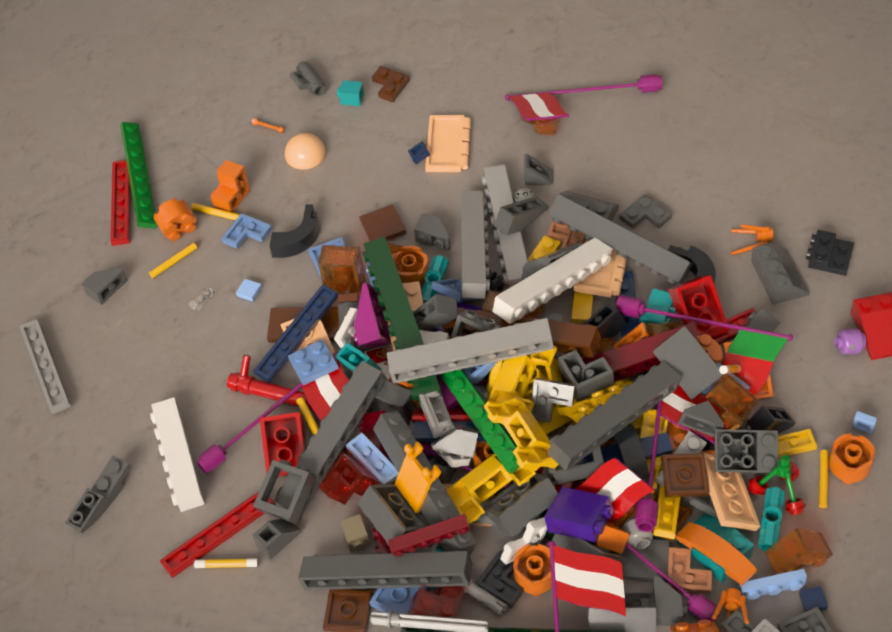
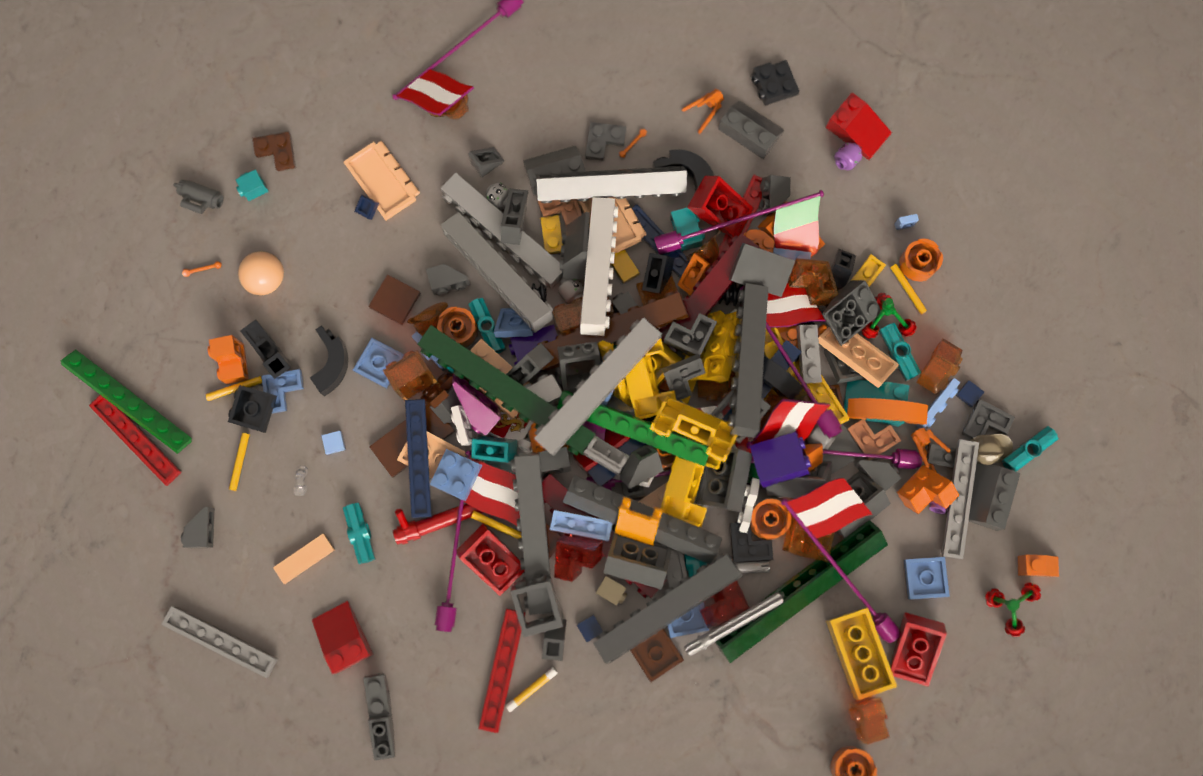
camera: 45 degrees left, 25 degrees up
(124, 425) = (341, 638): none -> red slope
(154, 352) = (304, 558): none -> light nougat tile
(175, 219) = (208, 424): orange brick -> none
(177, 455) = (410, 632): white brick -> none
(207, 360) = (359, 533): none -> teal piece
(213, 227) = (252, 408): none -> black plate
(262, 196) = (267, 349): none -> black arch
(313, 548) = (590, 628): none -> dark blue tile
(428, 535) = (687, 563): dark red piece -> none
(542, 608) = (800, 544): none -> clear orange bracket
(682, 227) = (642, 133): none -> orange hinge
(684, 475) = (824, 365): reddish brown tile -> none
(701, 419) = (804, 308): dark grey slope -> none
(730, 369) = (796, 253): bar -> none

